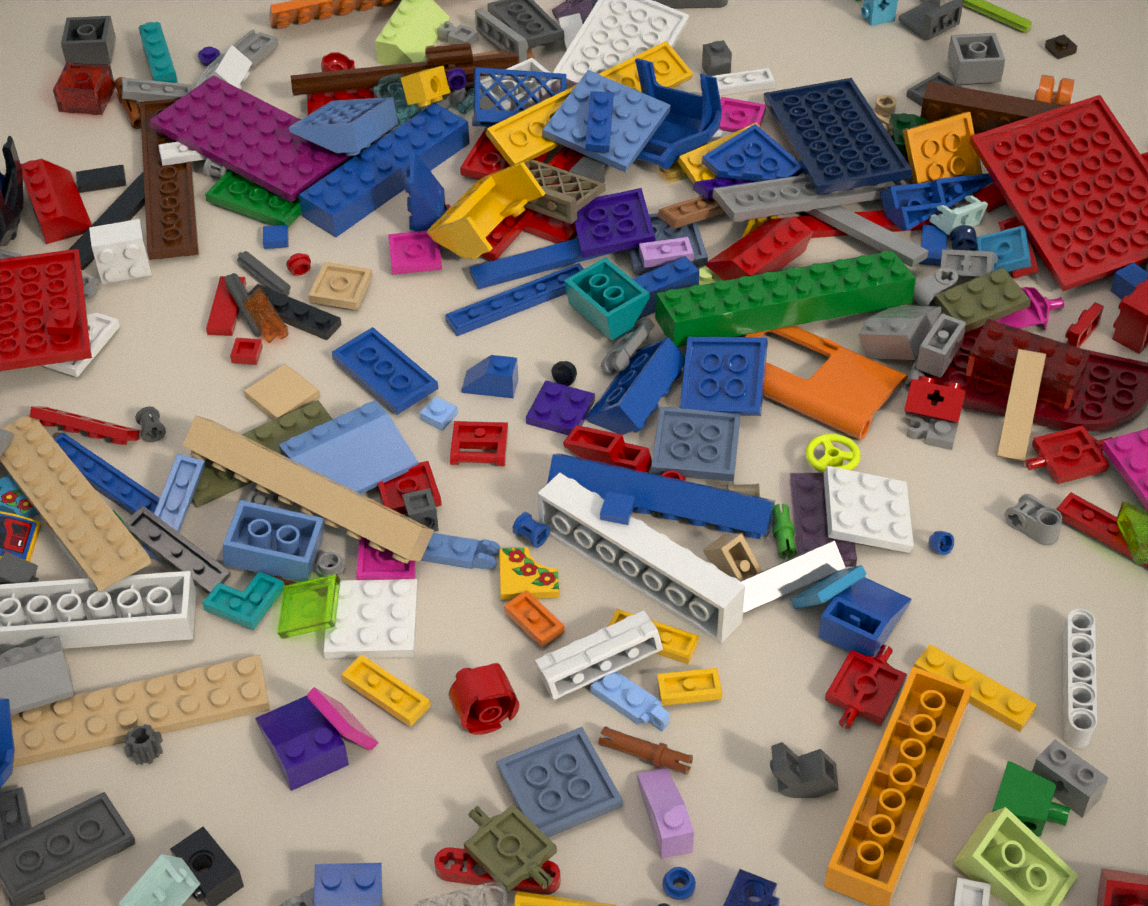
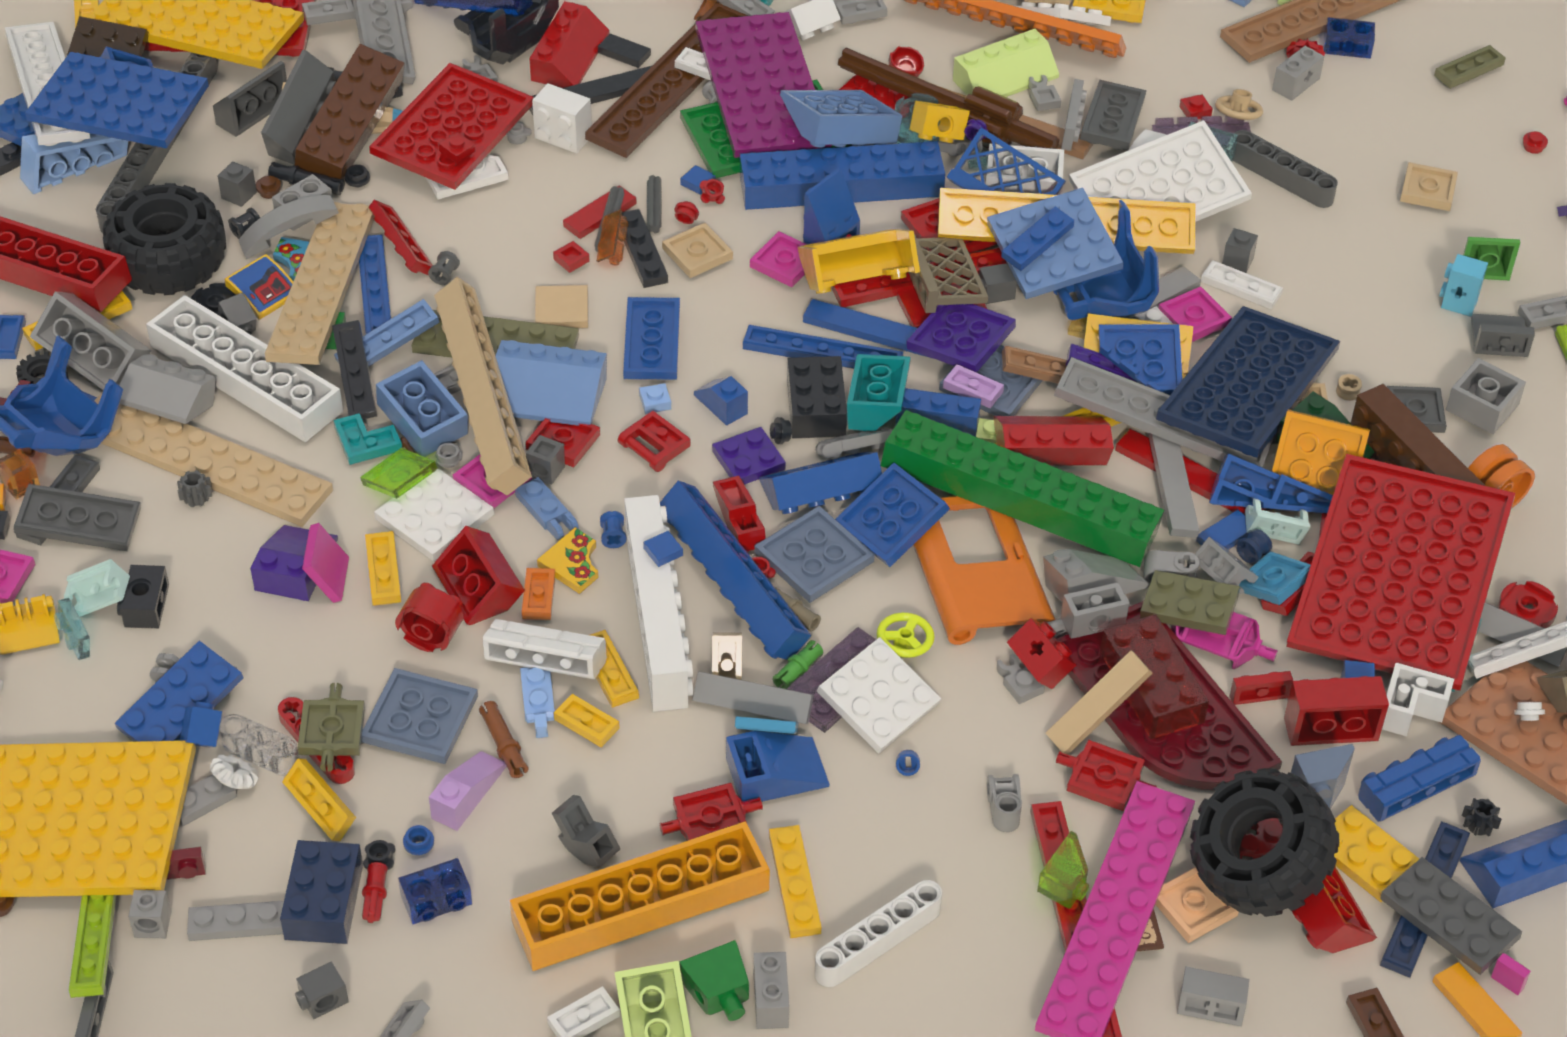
camera: 40 degrees right, 0 degrees up
(299, 237) = (715, 186): none -> red plate
(470, 638) = (478, 575): none -> red slope
(562, 331) = (816, 397): none -> black brick

